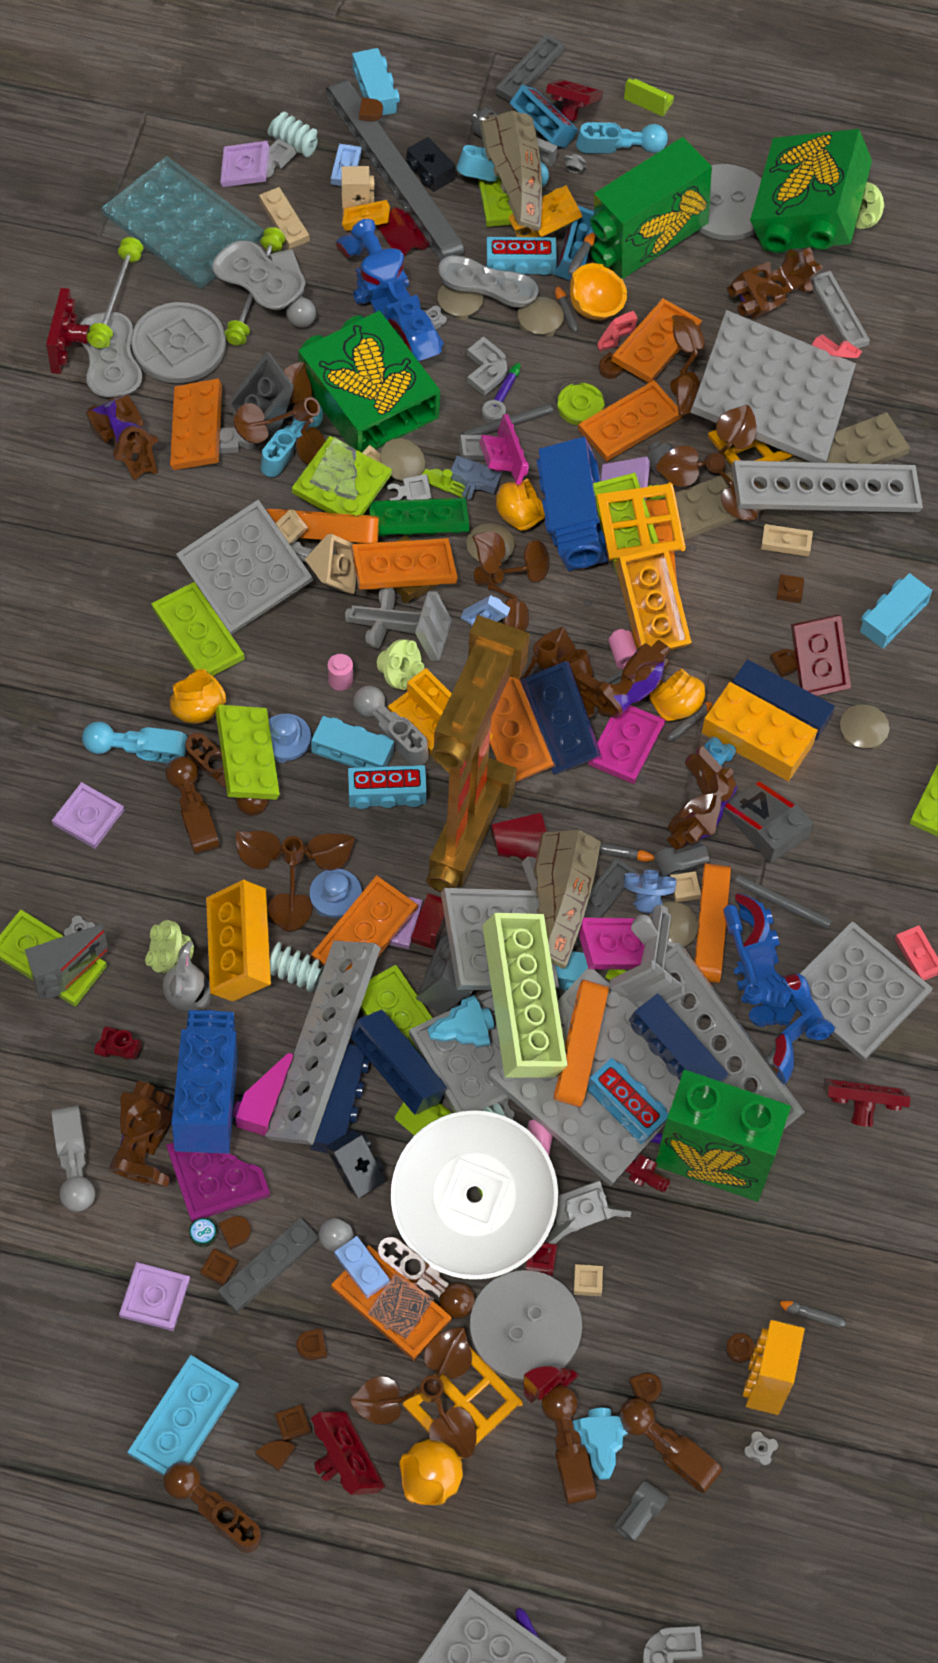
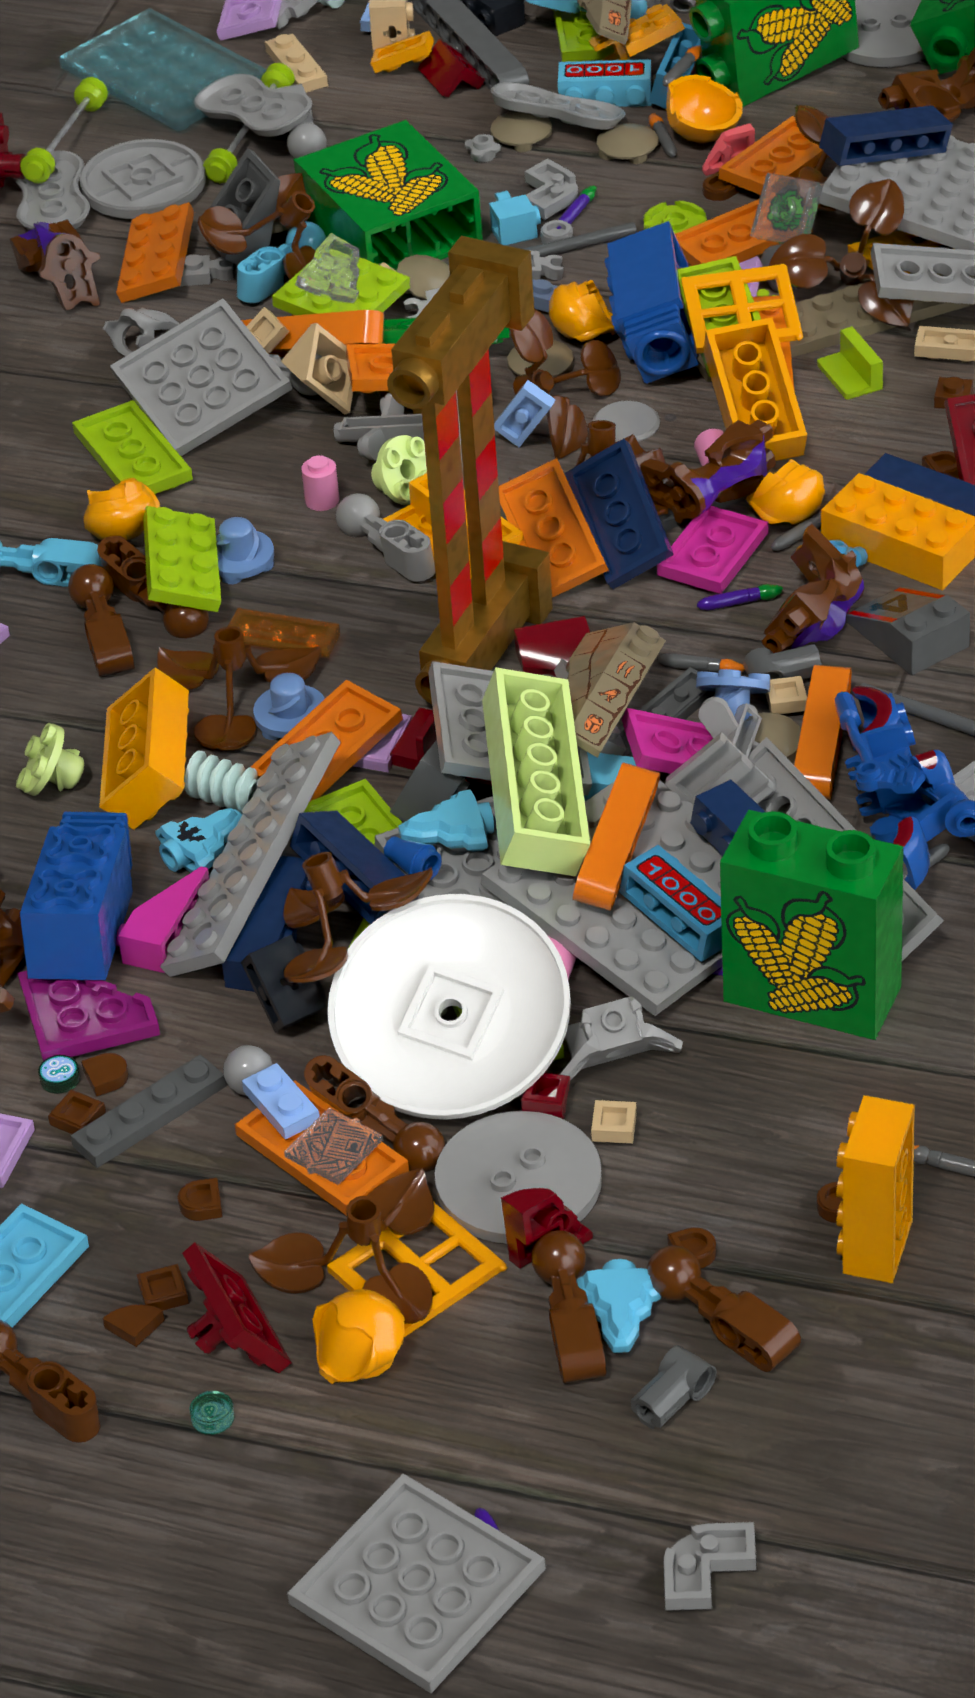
camera: 10 degrees right, 20 degrees down
(185, 982) = (61, 785): light grey piece -> none
(199, 502) = (144, 319): none -> light grey hair
(281, 1018) = (196, 839): none -> medium azure rock
(324, 817) = (285, 631): none -> clear orange plate
(335, 1529) = (212, 1412): none -> clear green tile
(351, 744) = (329, 558): medium azure brick -> none
(374, 1095) = (308, 906): none -> reddish brown plant
(385, 283) = (417, 95): blue piece -> none
(387, 786) = (373, 597): medium azure brick -> none
(440, 1057) = (413, 856): none -> blue cone
(461, 398) = (513, 218): none -> medium azure brick
(505, 451) = (569, 260): dark pink bracket -> none
(555, 607) = (630, 419): none -> light grey piece
(643, 1171) = (708, 999): dark red plate -> none
(664, 783) = (763, 592): none -> dark purple piece
(667, 415) = (786, 208): none -> clear tile
(717, 561) = (855, 368): none -> lime panel
(739, 348) = (885, 135): none -> dark blue brick
(752, 1451) = (862, 1316): light grey plate -> none

